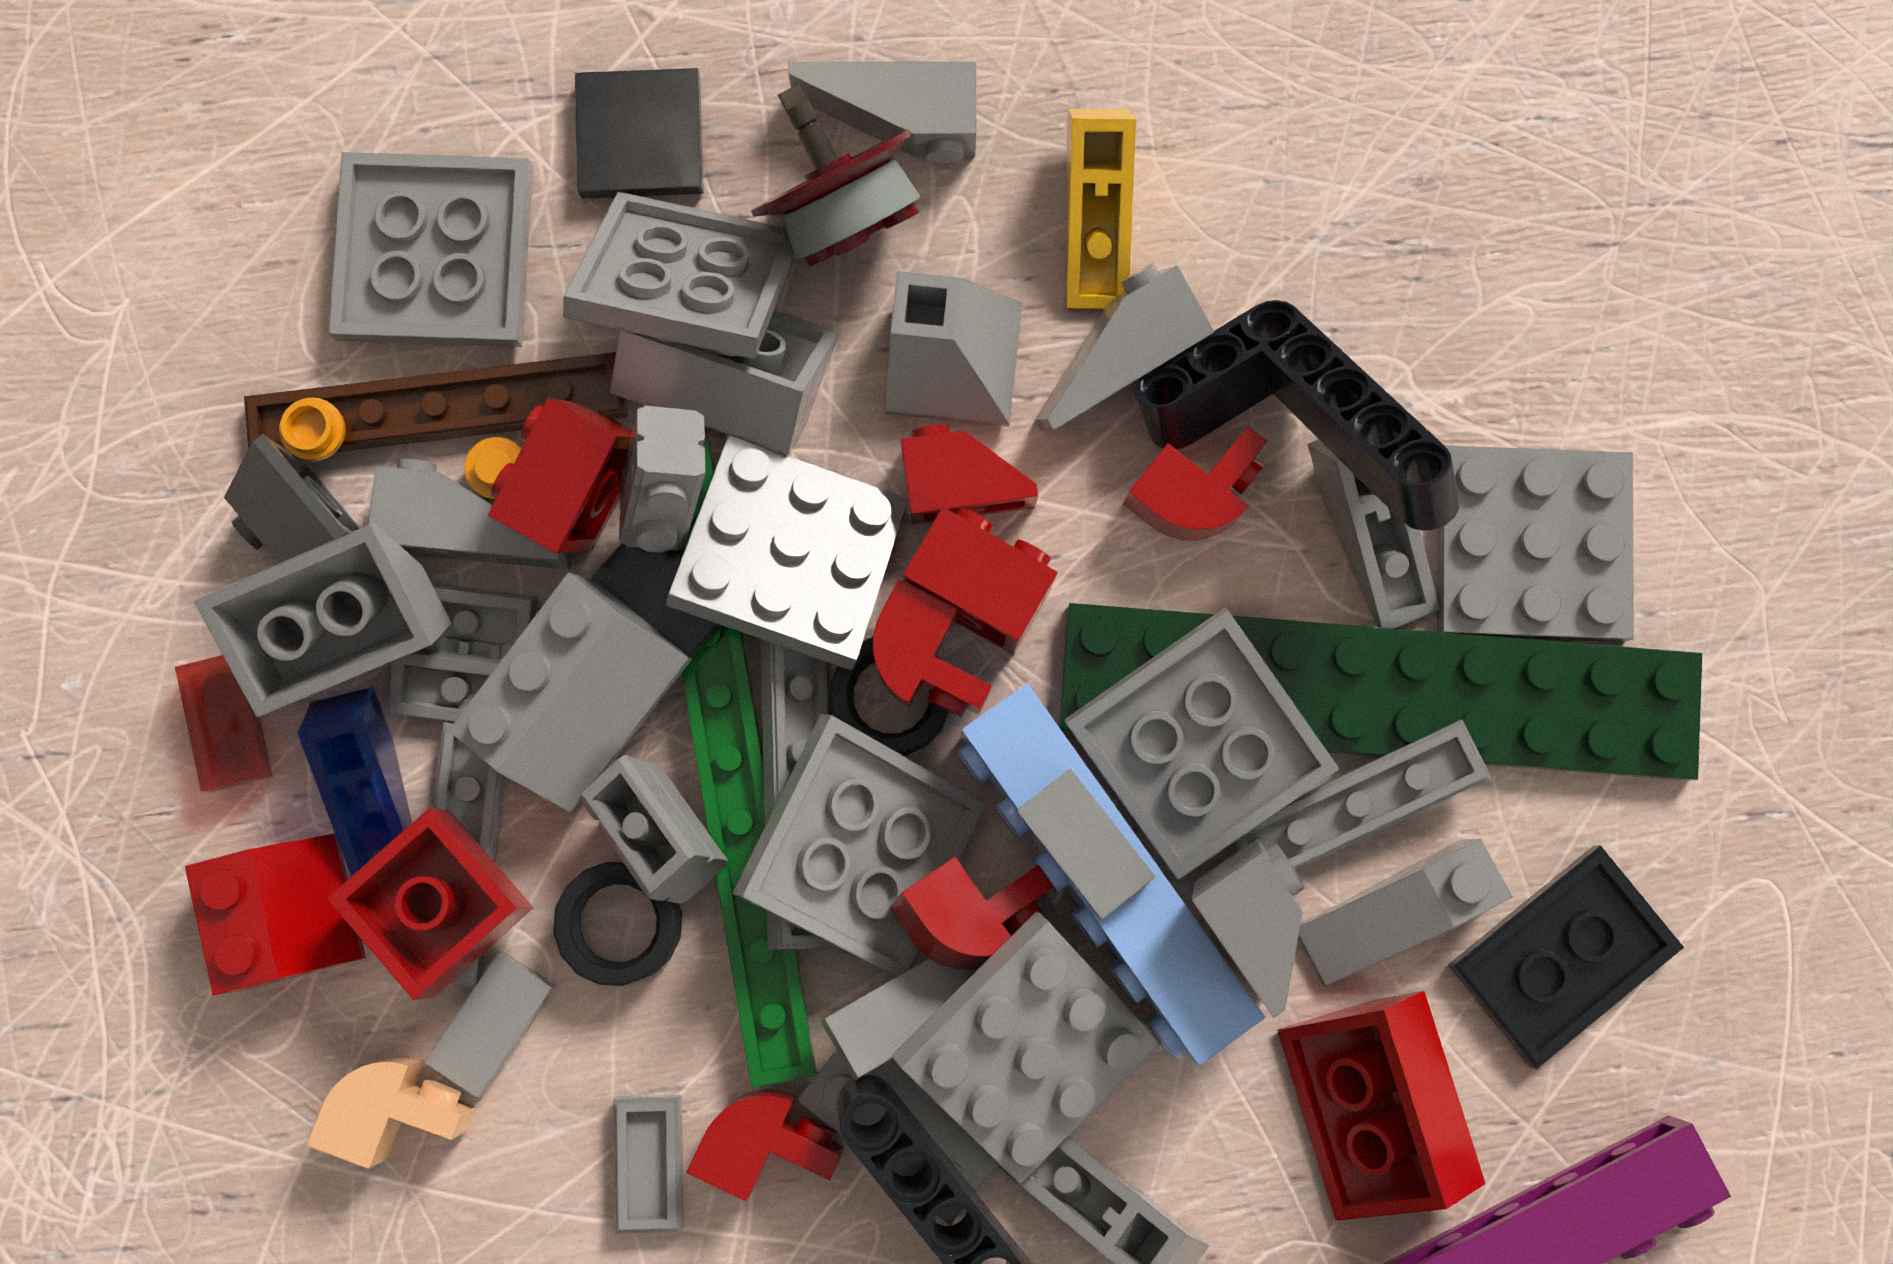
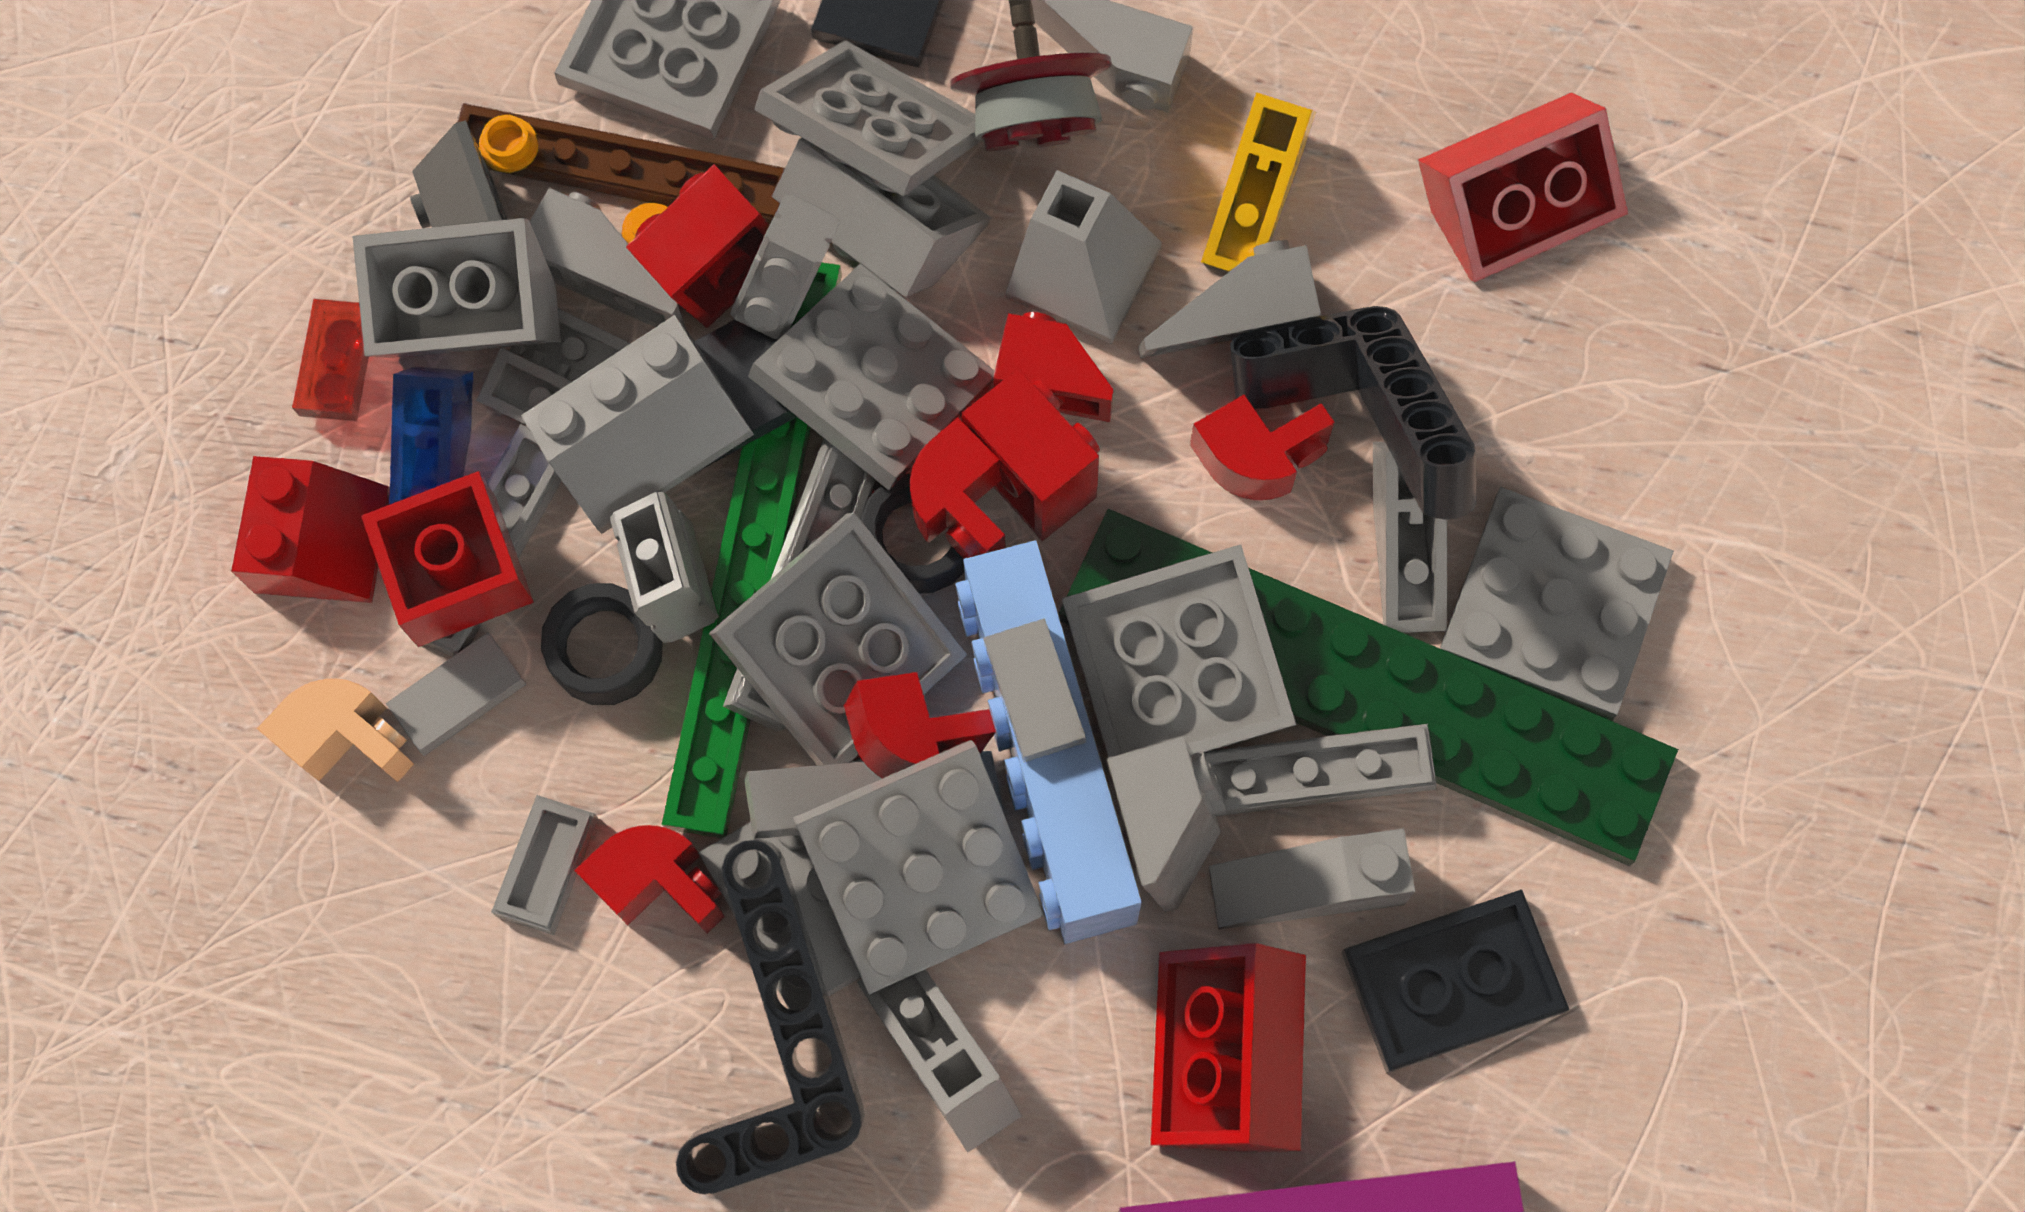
camera: 25 degrees right, 10 degrees down
(1363, 116) = (1525, 185): none -> red slope

